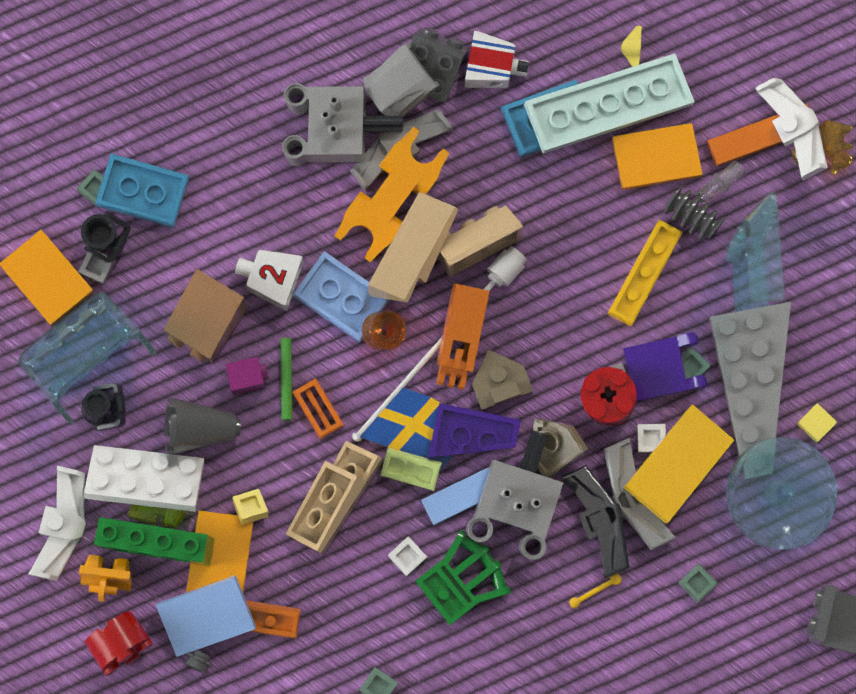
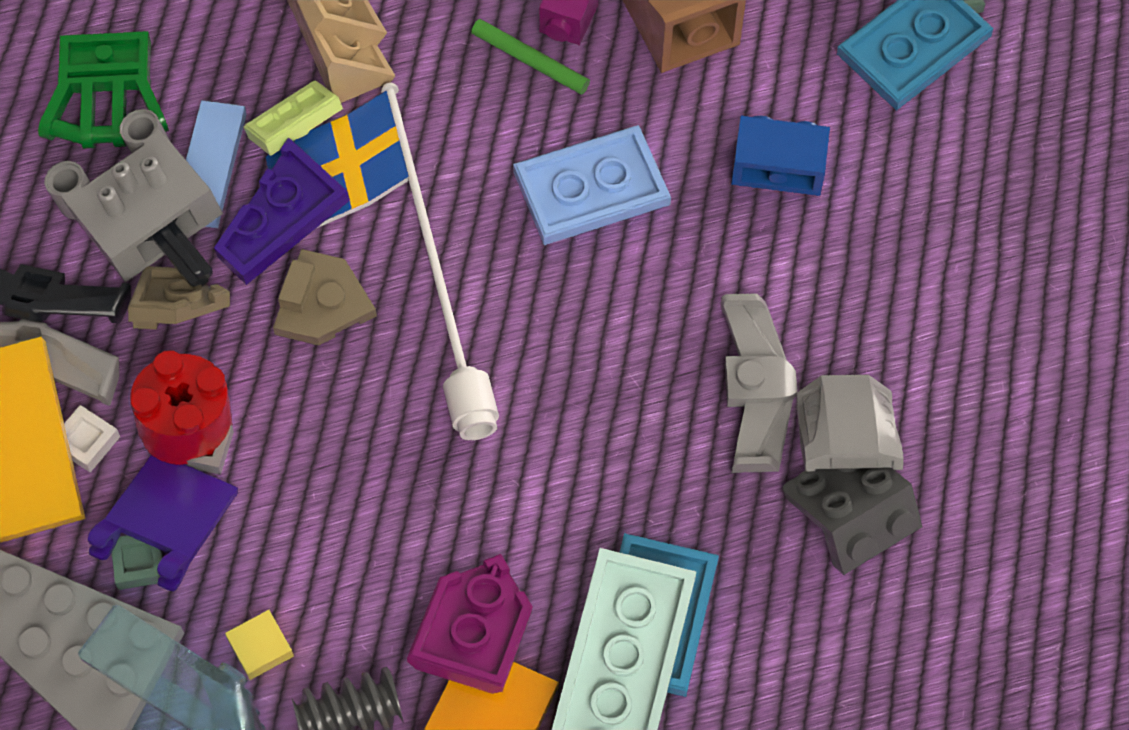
camera: 125 degrees right, 15 degrees down
(263, 211) = (781, 155): none -> blue brick
(272, 276) = (679, 112): white torso -> none
(329, 429) = (461, 74): orange tile -> none
(334, 125) = (845, 310): light grey piece -> none
(372, 330) = (483, 188): clear orange wheel -> none
(379, 212) = (698, 343): light orange piece -> none
(407, 556) = (189, 53): white tile -> none
(413, 249) = (584, 279): tan slope -> none
(463, 324) = (427, 286): orange hinge -> none
(479, 239) = (538, 383): tan slope -> none
(492, 63) = (796, 584): torso -> none
(614, 188) = (473, 627): none -> magenta tile
(645, 273) = (321, 592): yellow tile -> none
(689, 281) = (259, 644): none -> light yellow tile

